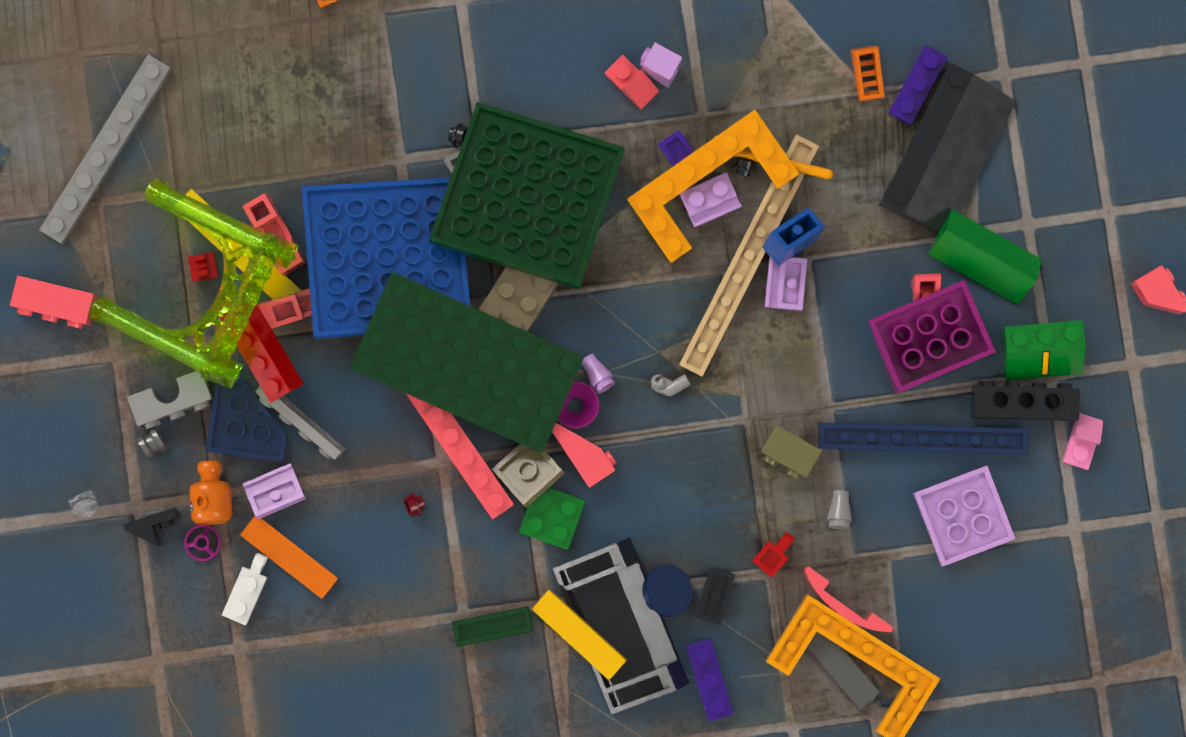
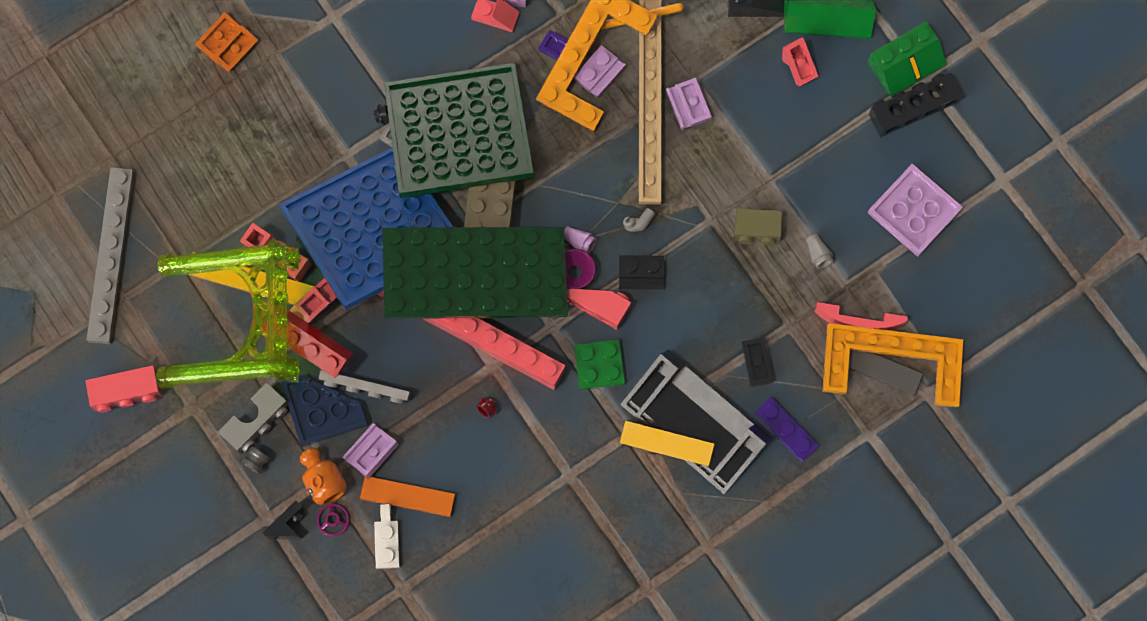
camera: 25 degrees left, 10 degrees down
(84, 504) = (223, 535): clear plate -> none
(203, 267) = (230, 307): red tile -> none
(492, 626) = (596, 471): dark green plate -> none
(527, 473) = (564, 338): dark tan plate -> none
(644, 440) = (641, 272): none -> black plate
(667, 590) = (718, 375): dark blue tile -> none
(744, 166) = (612, 34): black plate -> none
(771, 556) = (785, 311): red plate -> none
(793, 236) = (676, 64): blue brick -> none
(923, 438) = (853, 168): dark blue plate -> none
(930, 337) = (819, 89): magenta slope -> none
(1083, 441) = (974, 114): bright pink slope -> none

